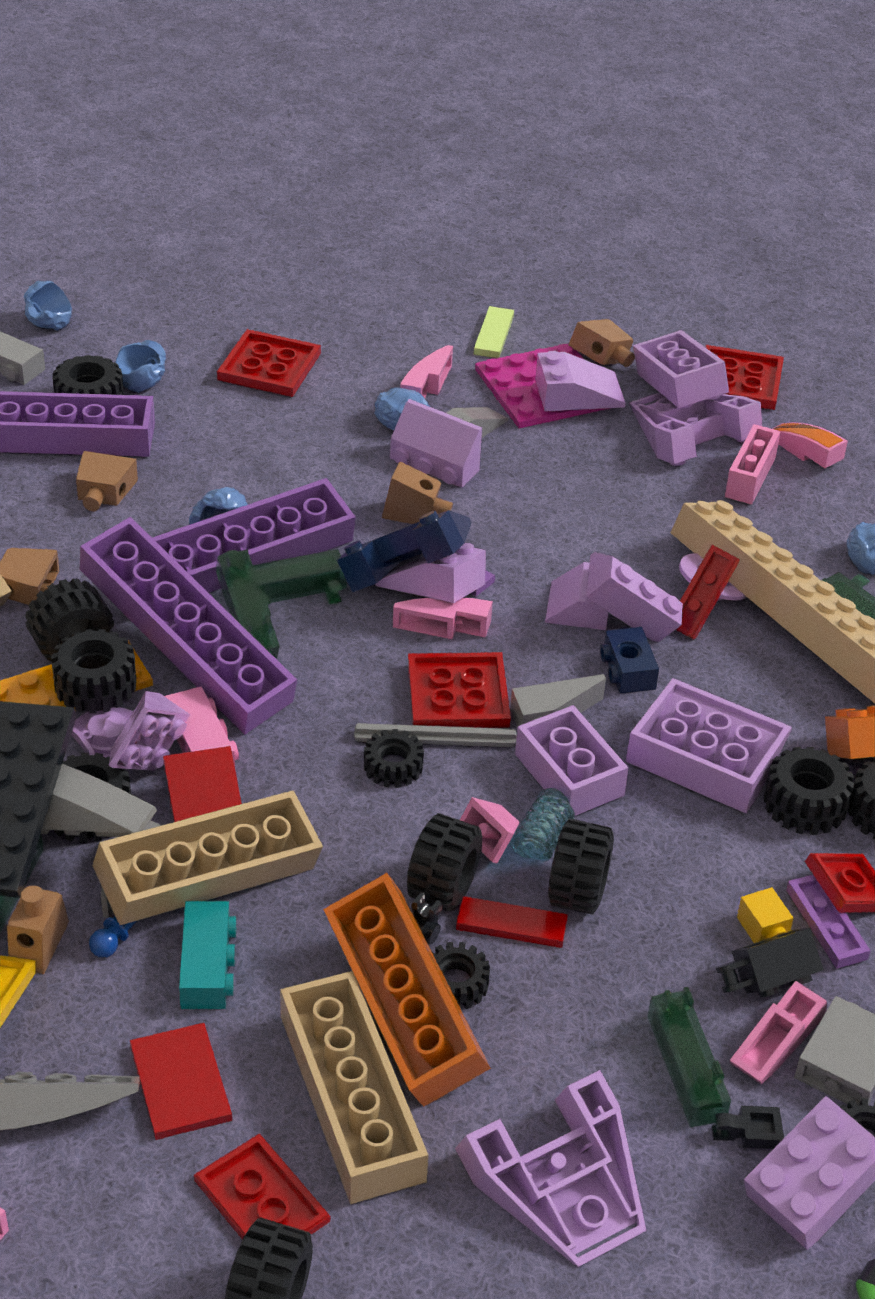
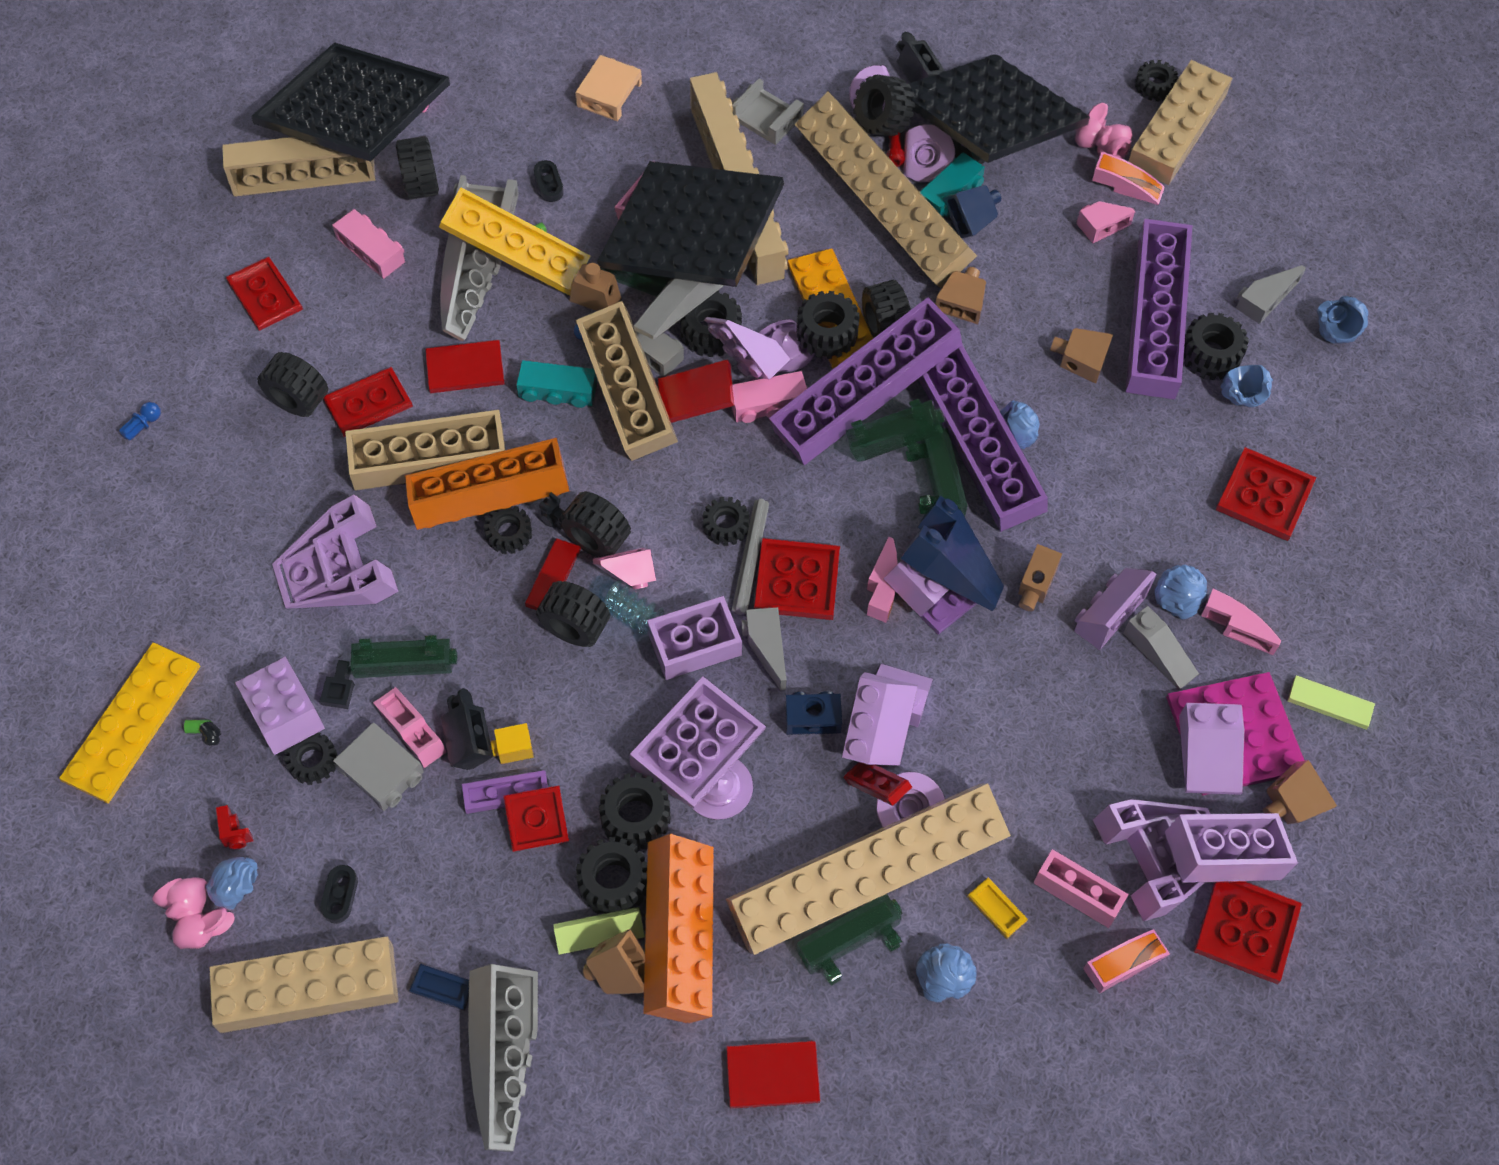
camera: 100 degrees right, 20 degrees up
(789, 525) = (997, 908): none -> yellow tile

